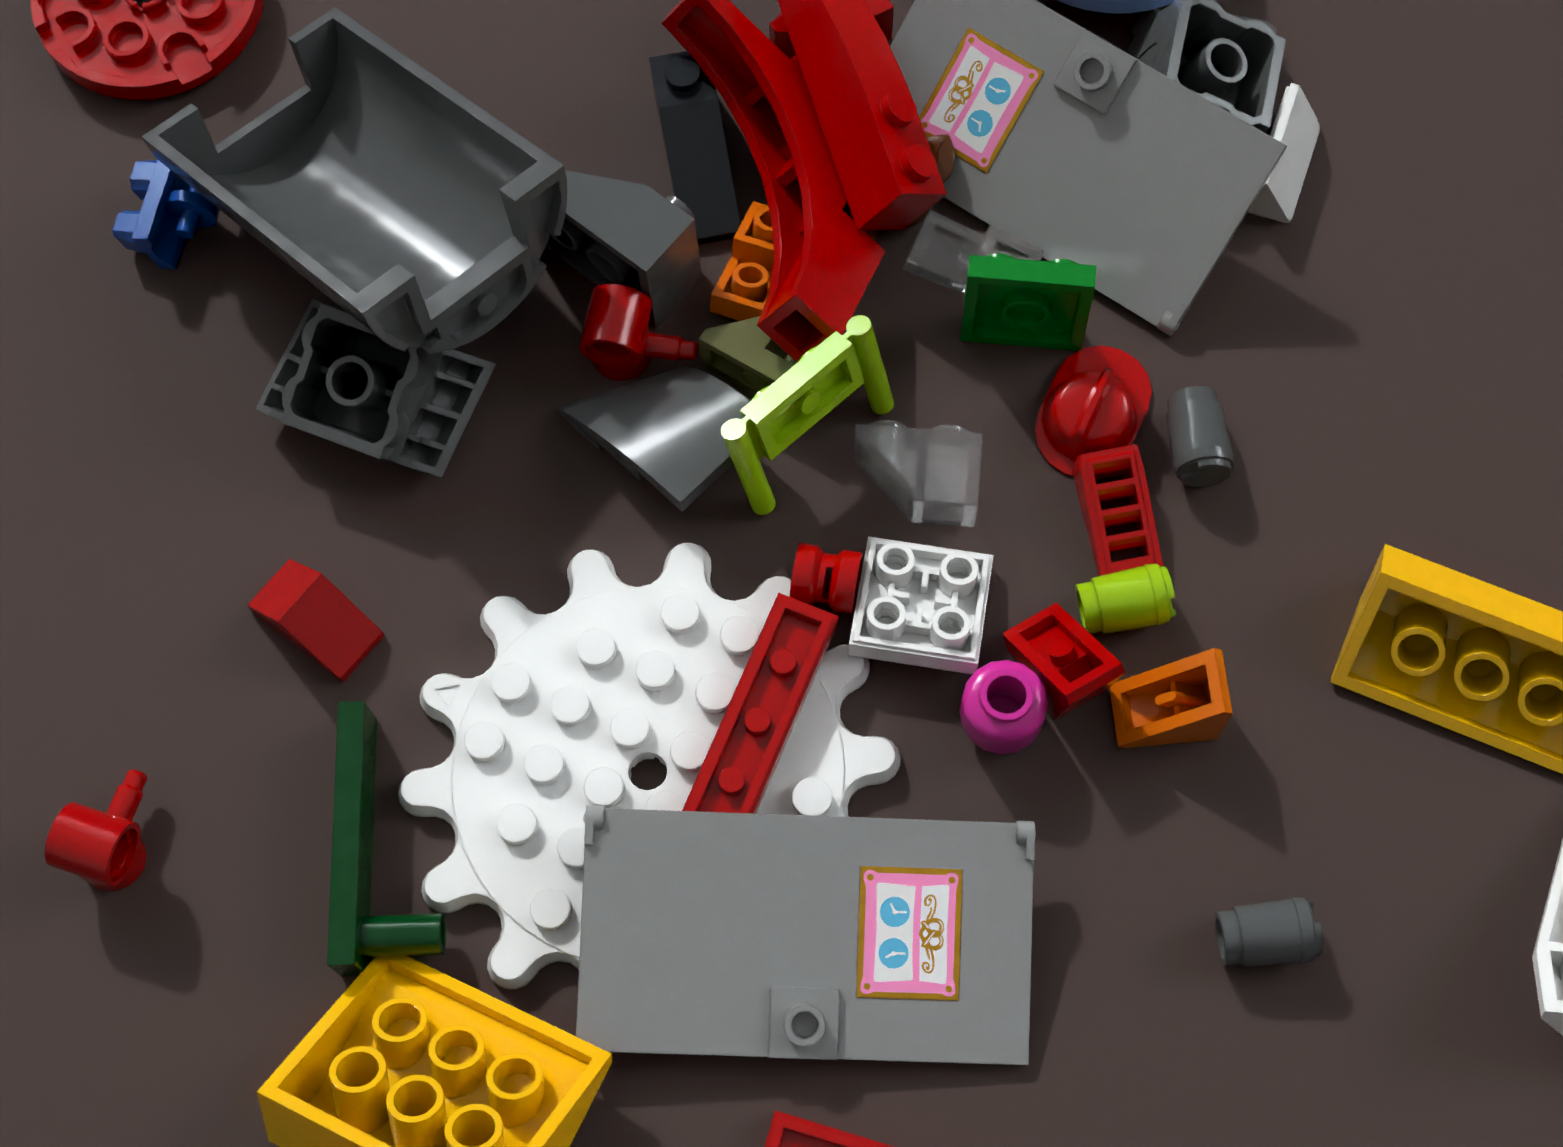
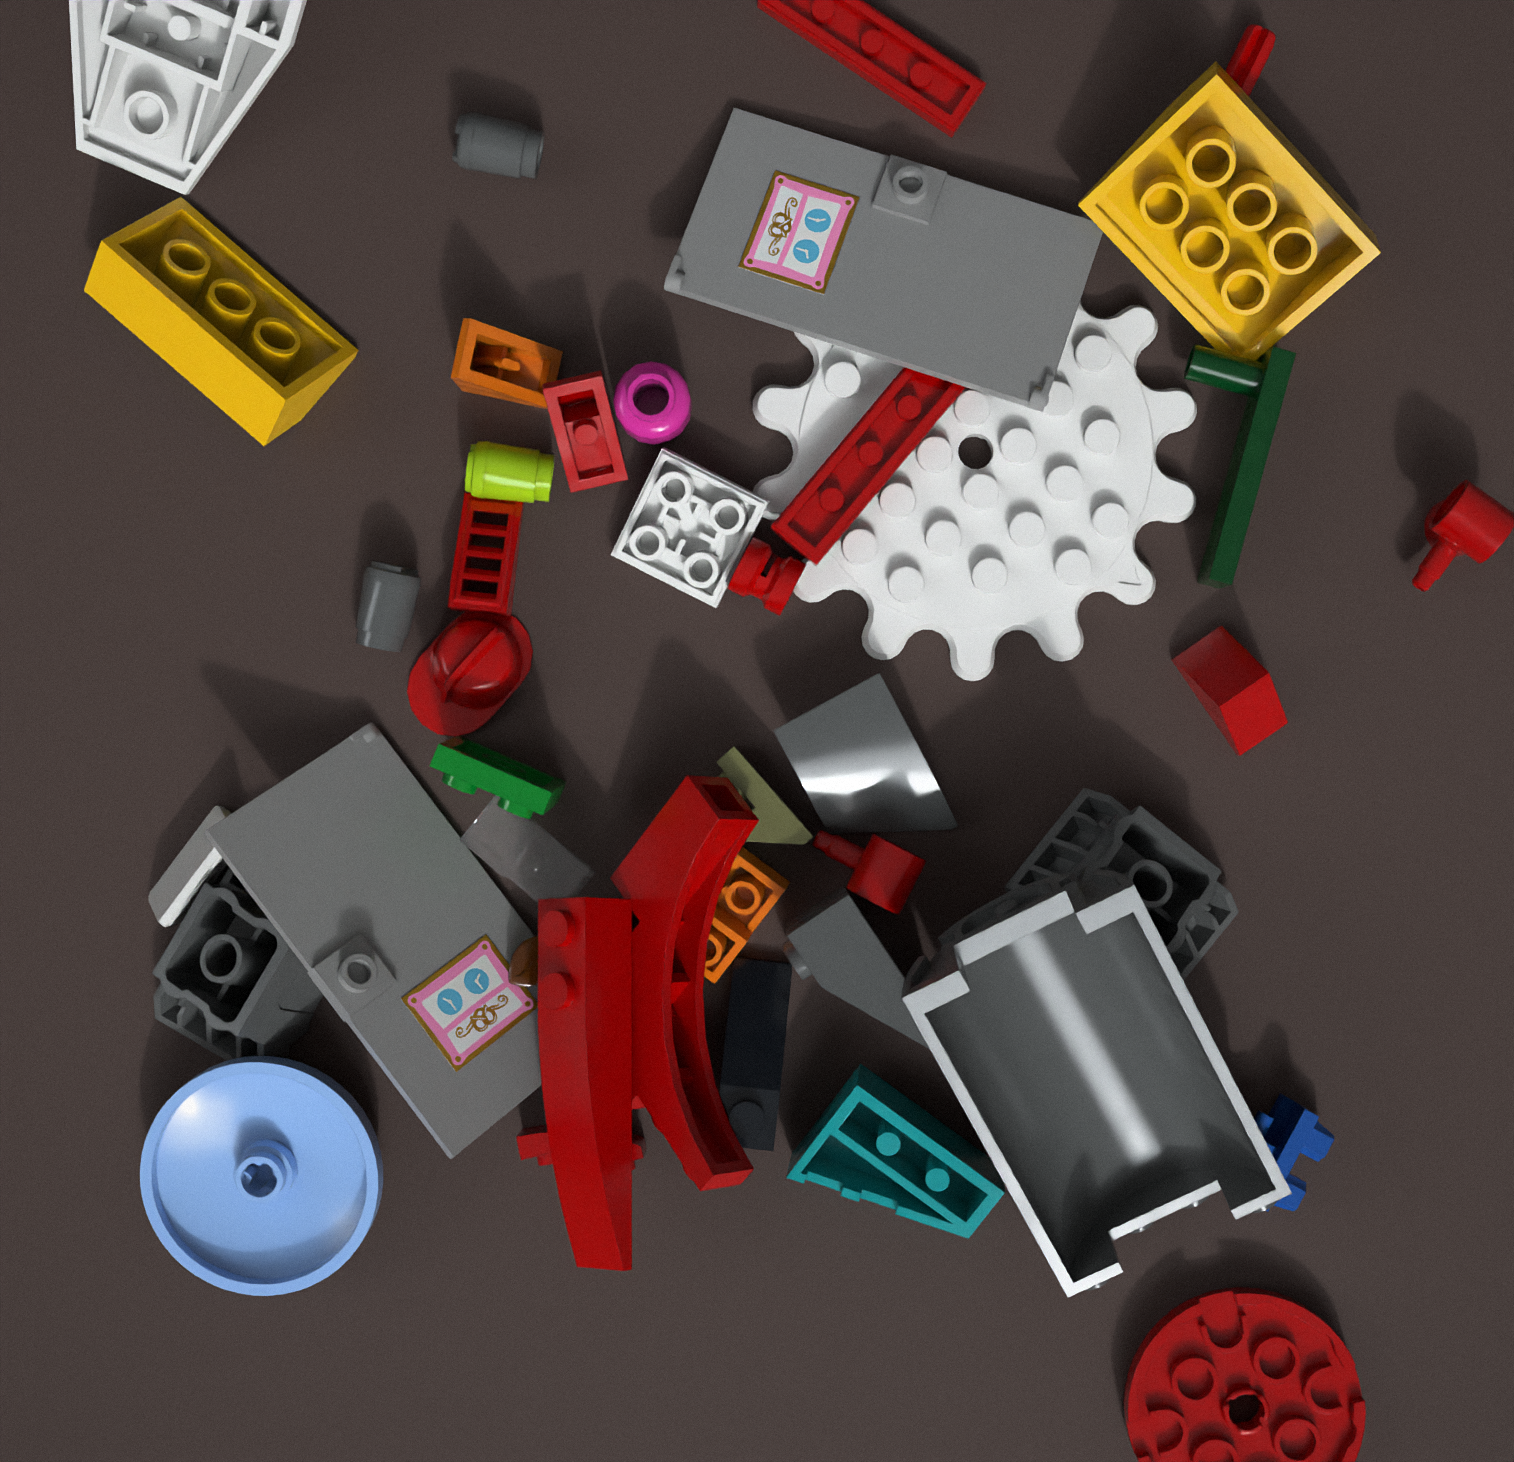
camera: 170 degrees left, 20 degrees up
(550, 95) = (899, 1156): none -> teal wedge
(801, 399) = (758, 723): lime plate -> none
(924, 471) = (644, 646): clear slope -> none

